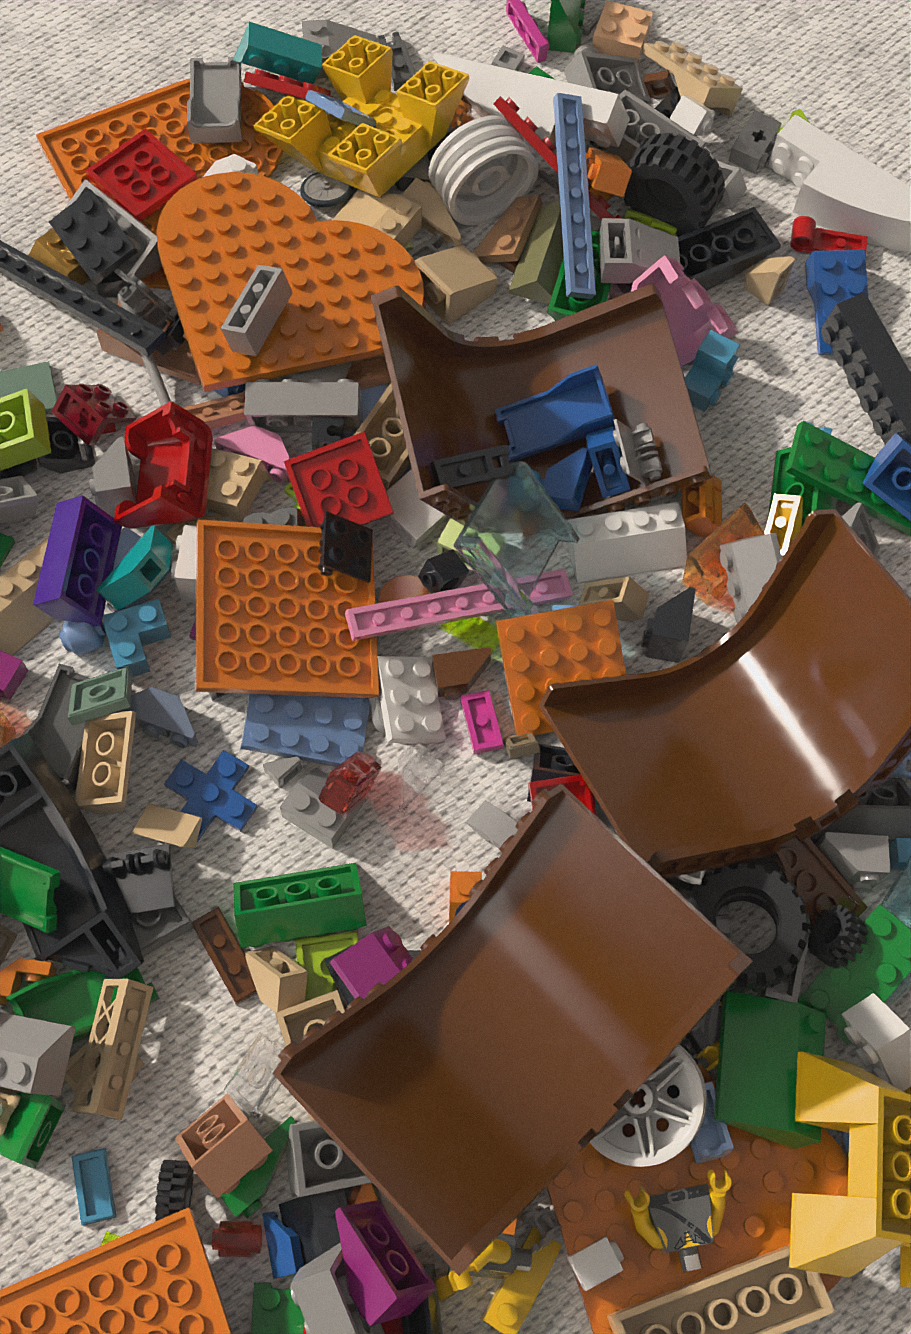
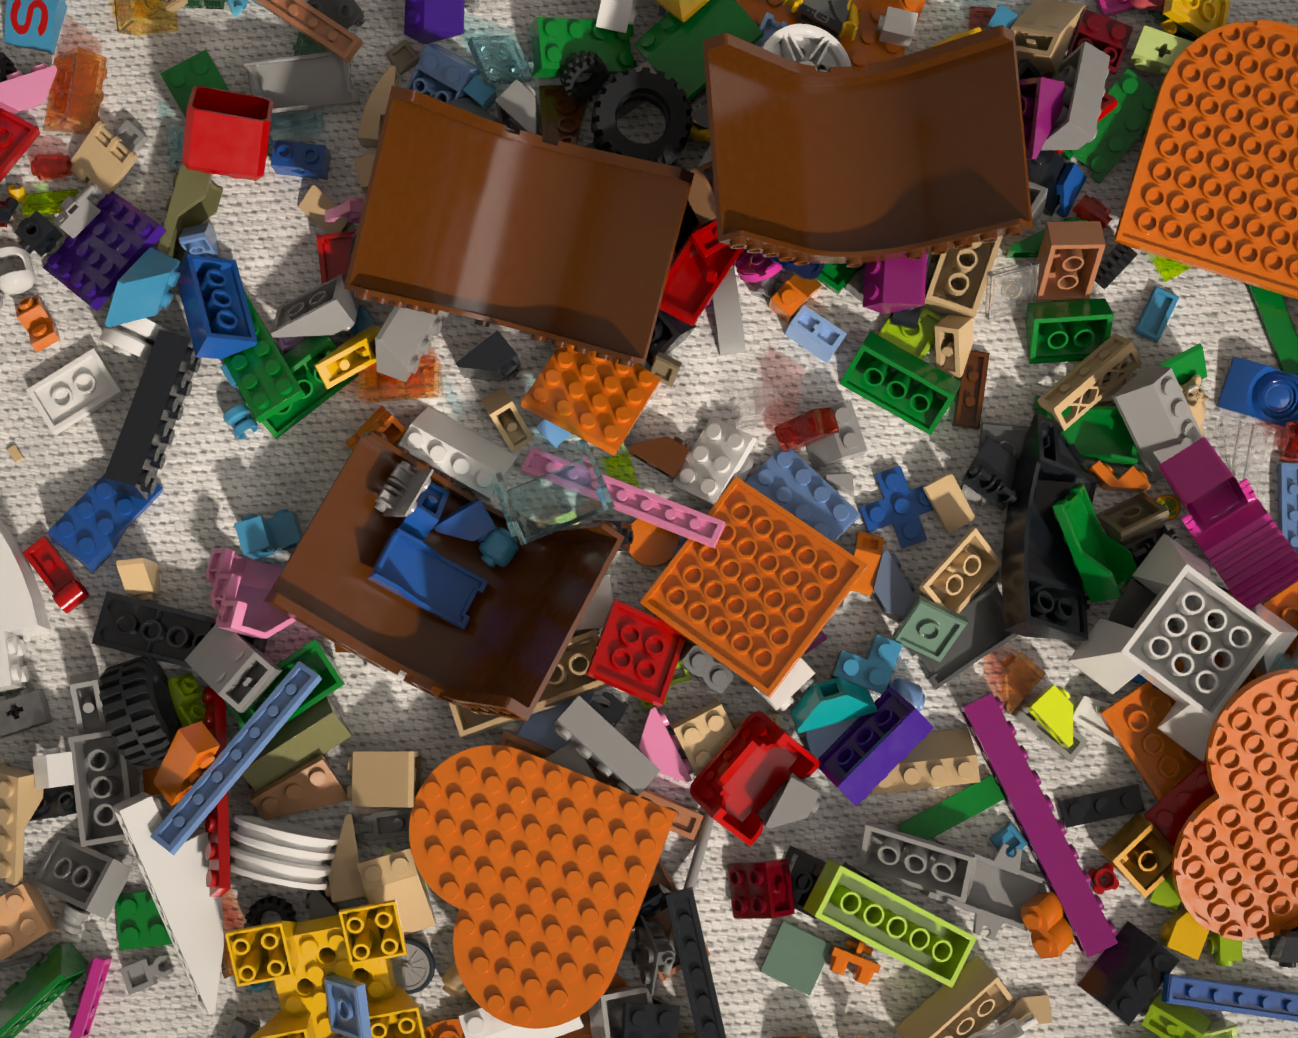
camera: 135 degrees left, 15 degrees up
(175, 1089) = (1066, 329): none -> green slope
(206, 721) = (869, 550): none -> orange slope
(257, 310) = (588, 838): light grey brick -> none
(345, 547) = (674, 596): black hinge -> none
(415, 884) = (815, 334): none -> light blue hinge
(473, 467) = (555, 545): black plate -> none
(481, 722) = (677, 408): dark pink plate -> none
(659, 84) = (38, 838): reddish brown plate -> none

